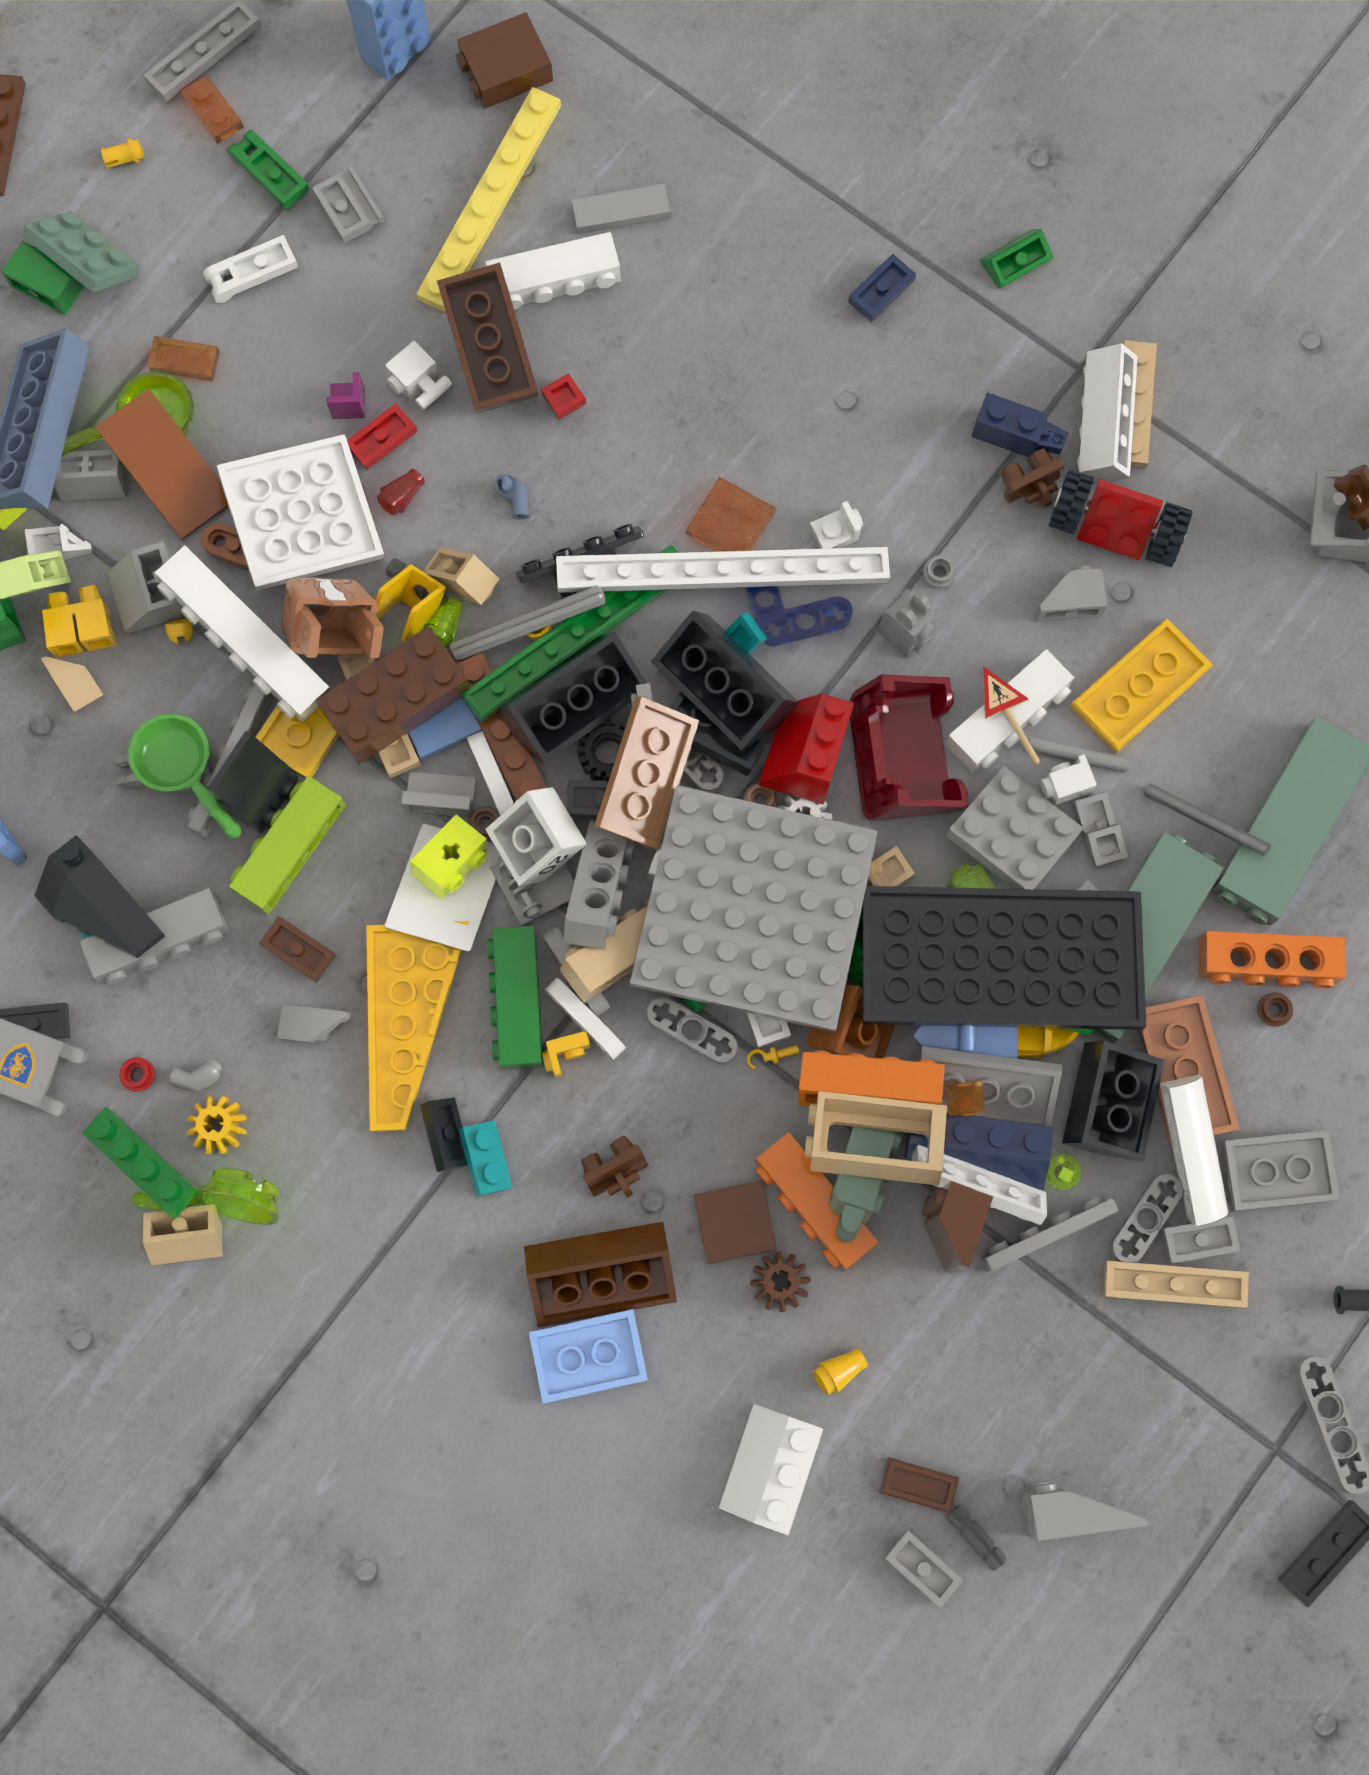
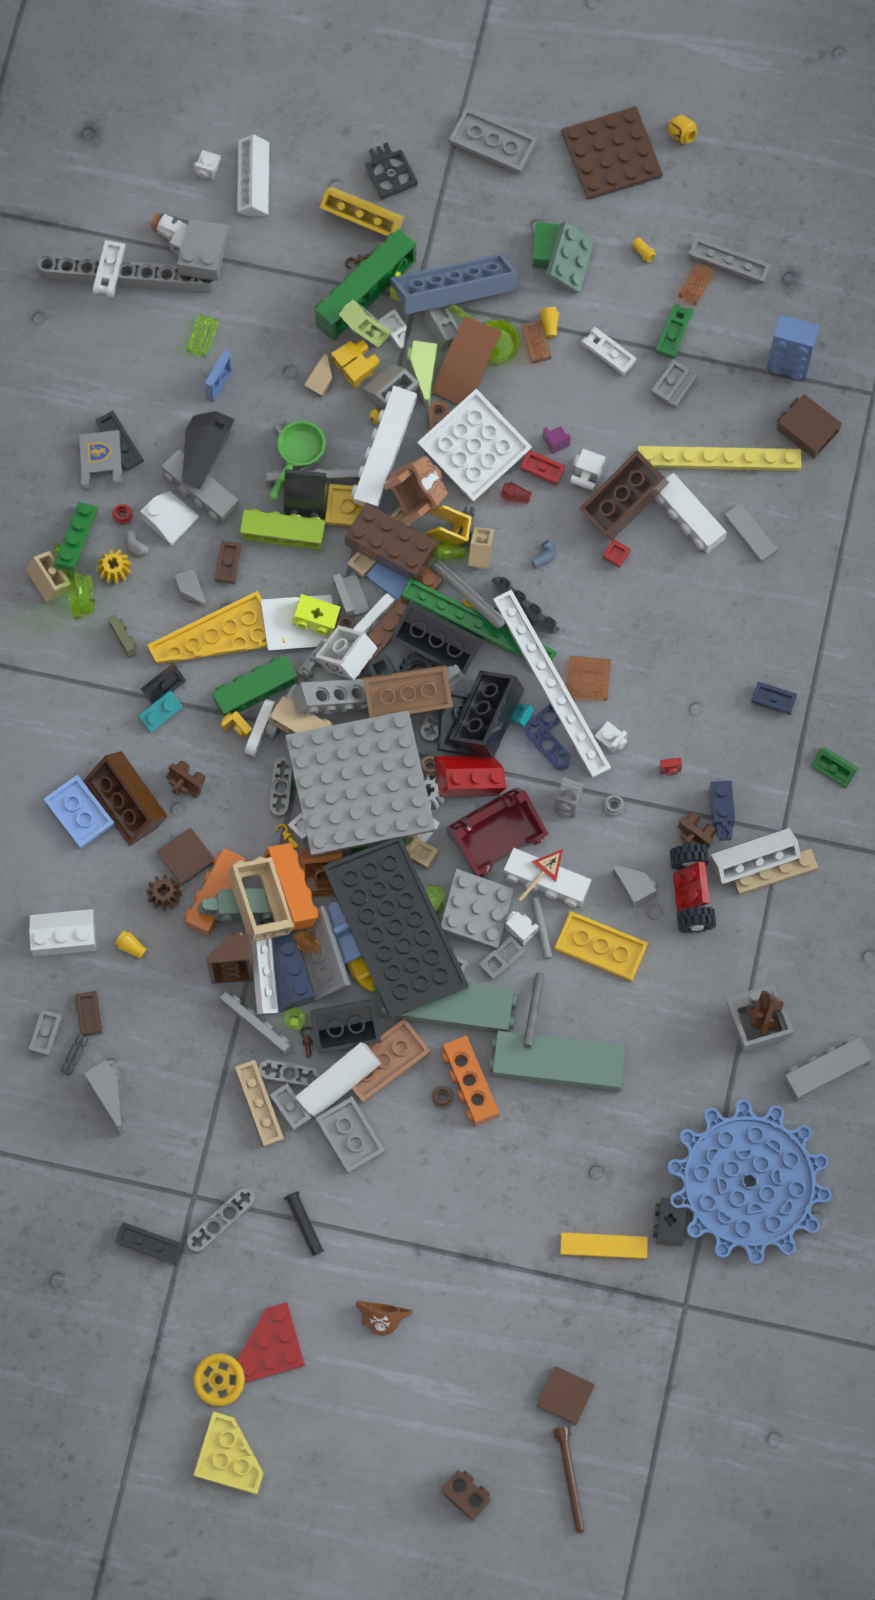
camera: 65 degrees right, 5 degrees down
(132, 527) = (423, 362): none -> yellowish green slope
(159, 323) = (549, 319): none -> yellow cone
(178, 1005) = (168, 516): none -> white slope
(321, 1162) = (119, 629): none -> olive plate
(920, 468) = (670, 766): none -> red plate
(1107, 1170) = (307, 1042): none -> reddish brown hand

